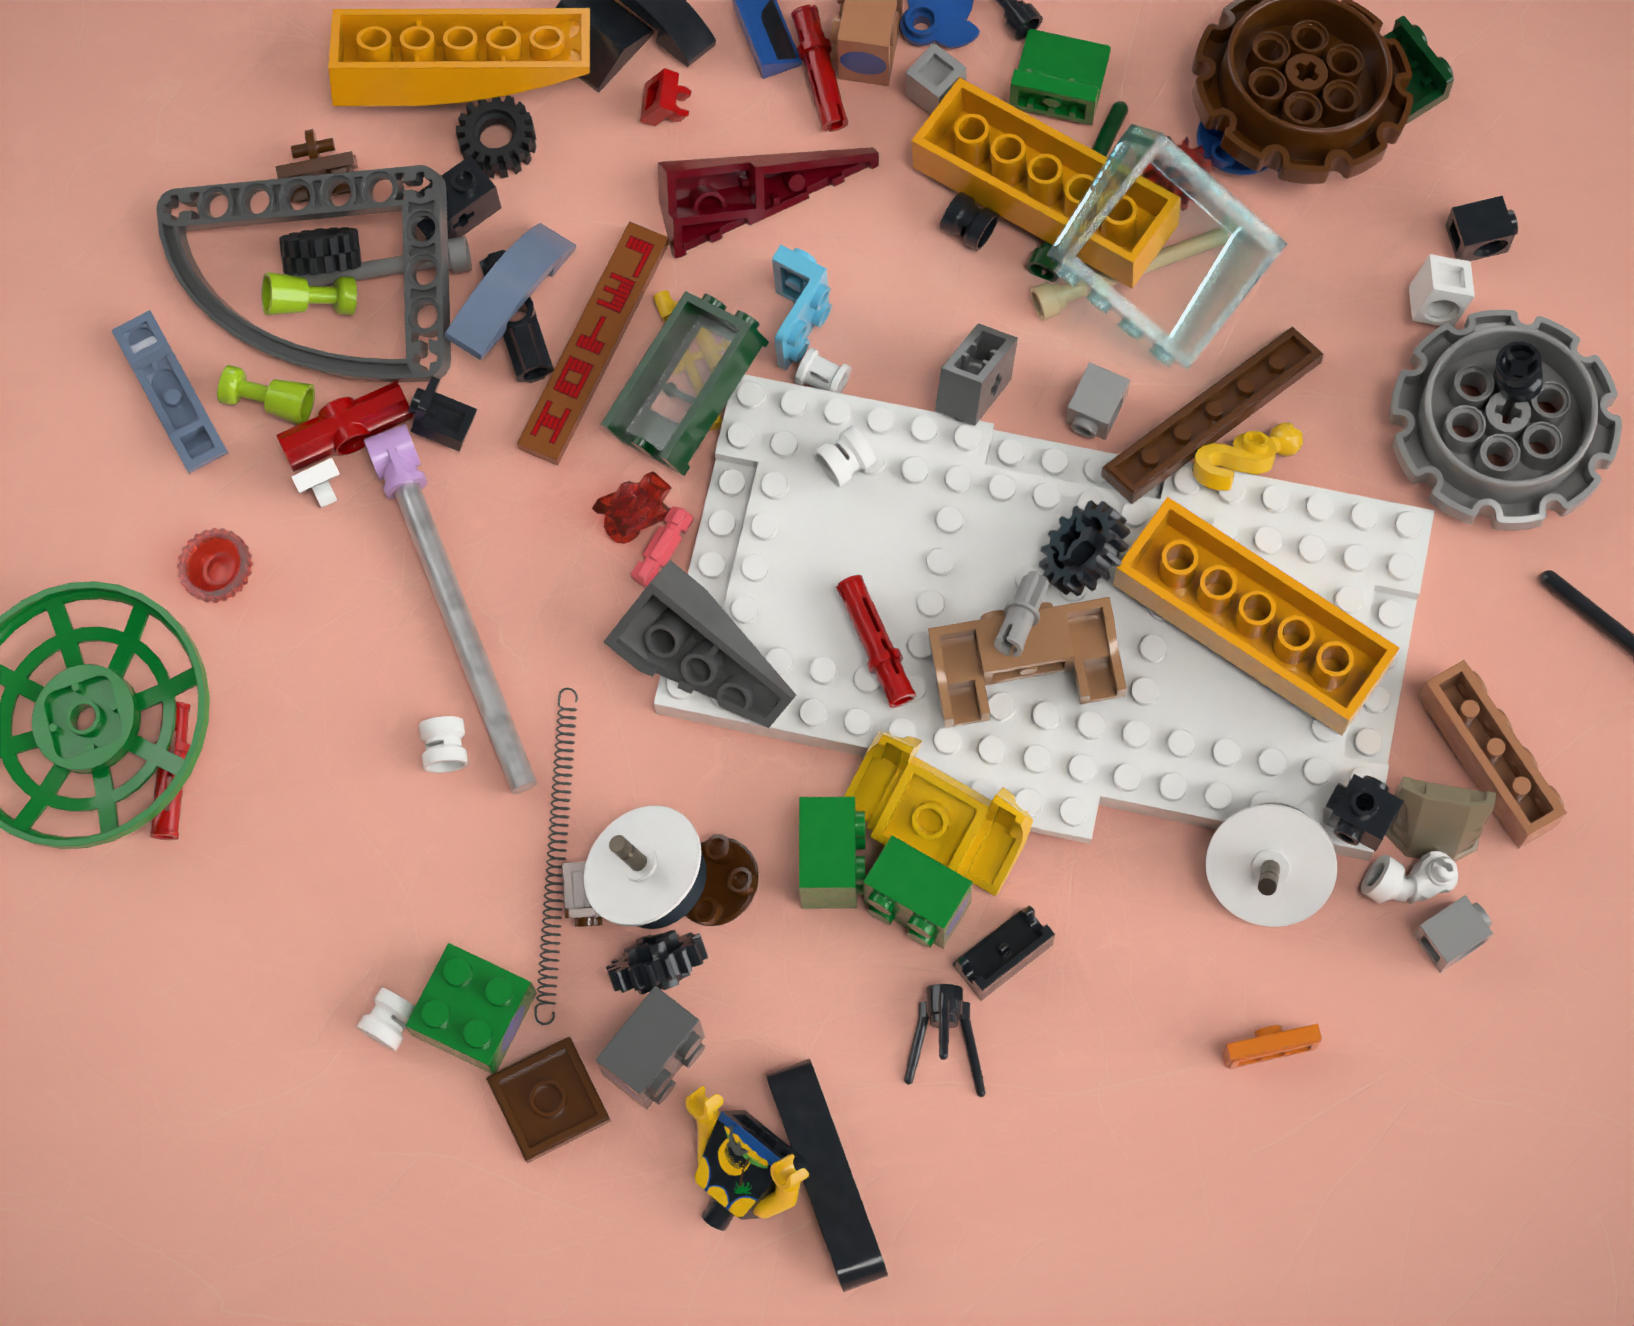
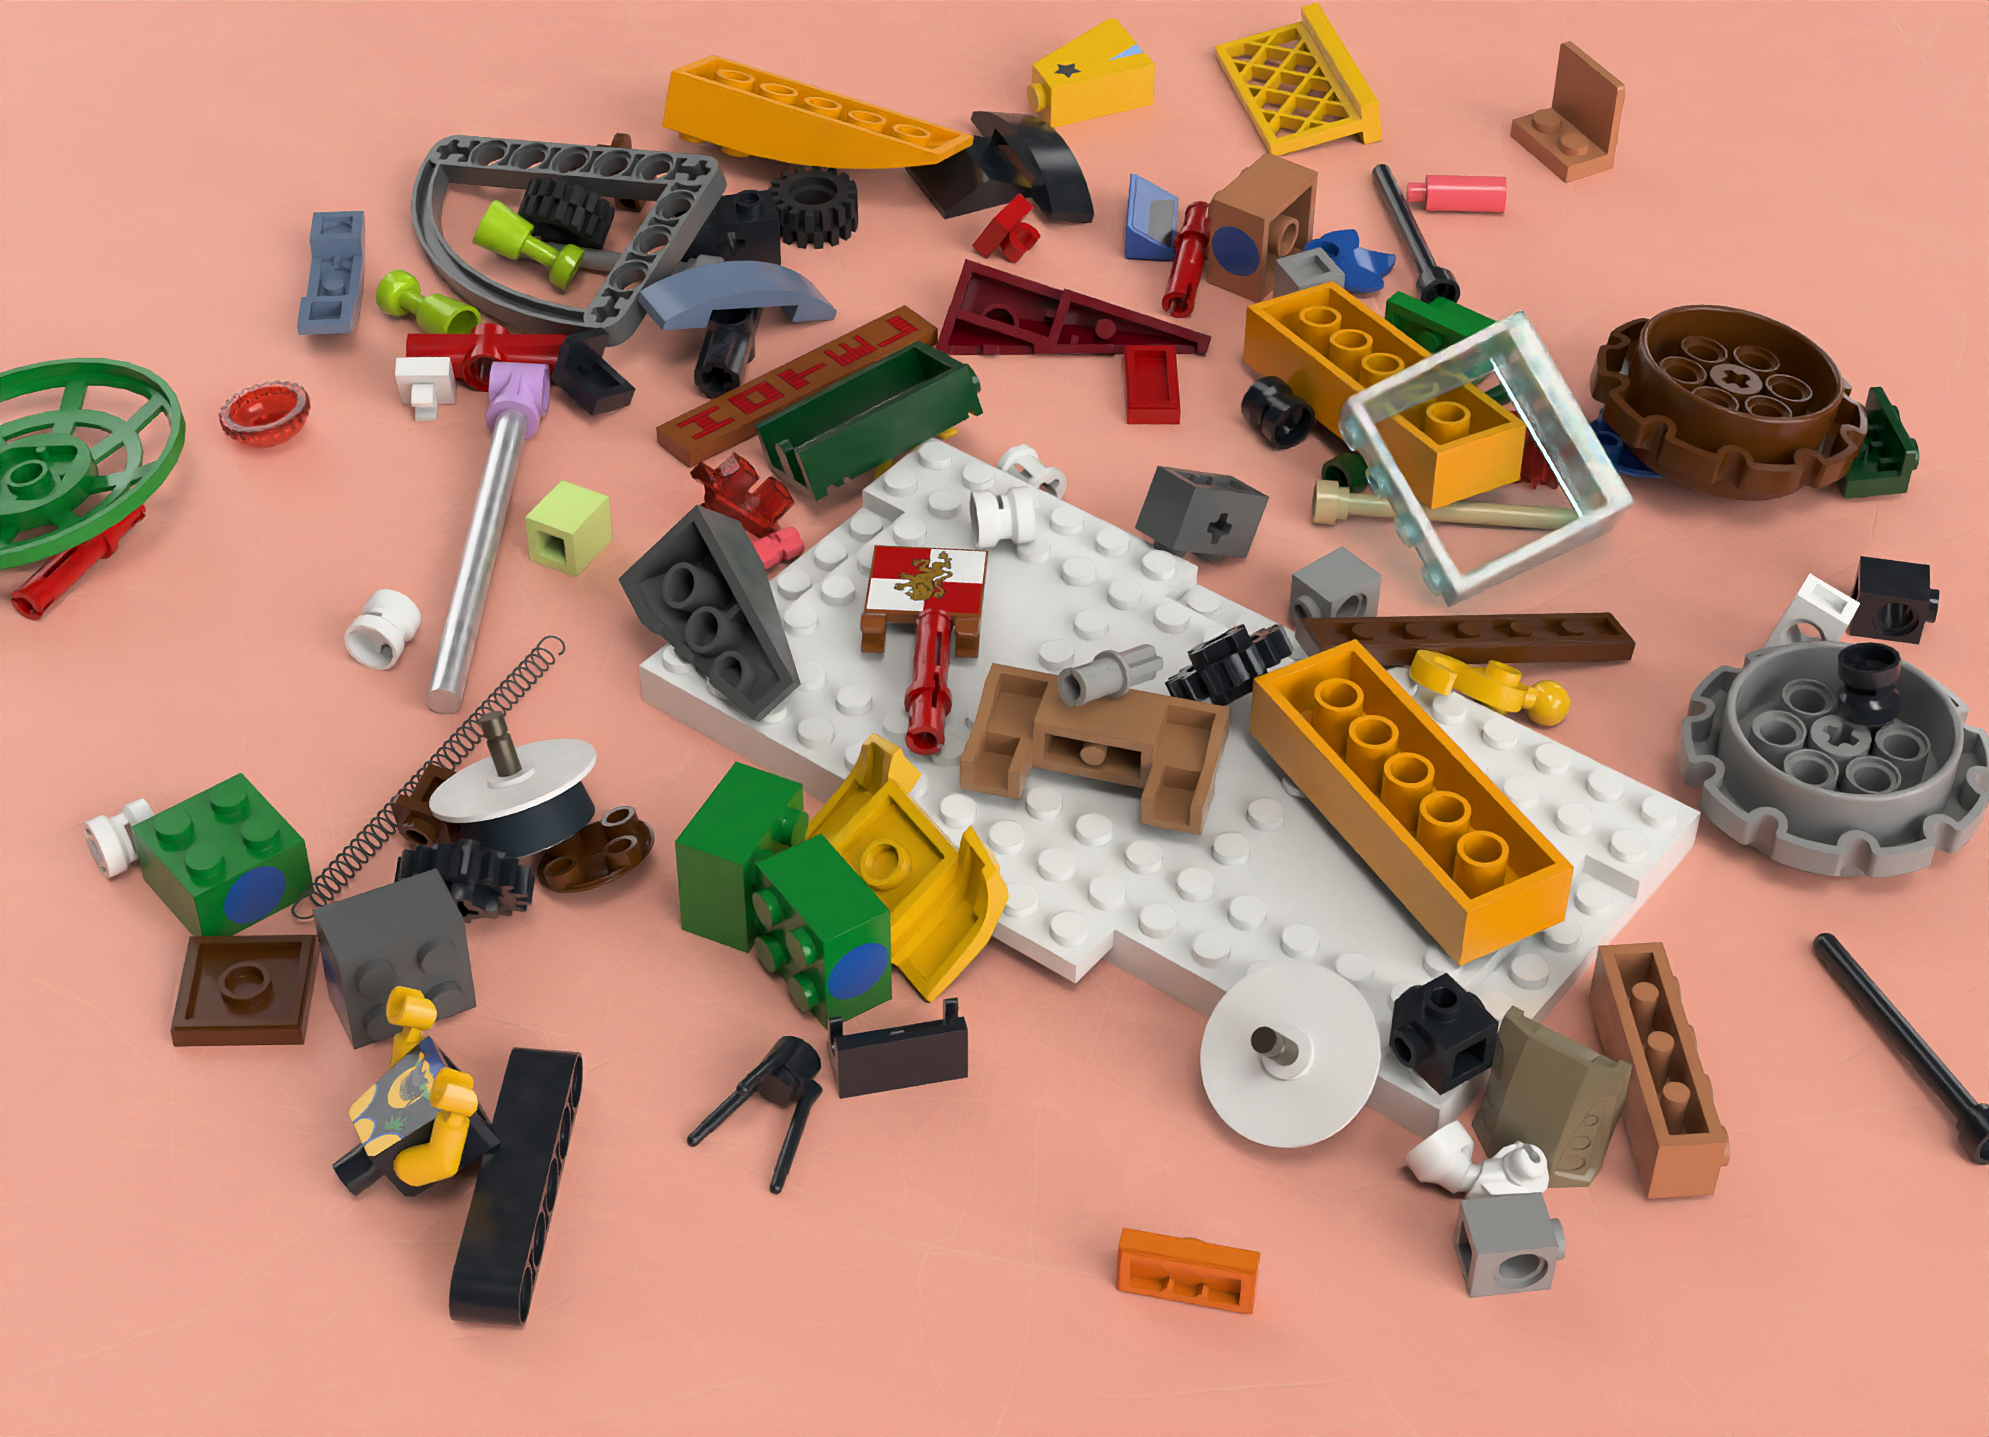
camera: 20 degrees right, 30 degrees down
(516, 580) = (569, 528): none -> yellowish green brick
(805, 284) = (1040, 403): medium azure bracket -> none
(823, 546) = (924, 578): none -> flag
(855, 222) = (1151, 384): none -> red tile

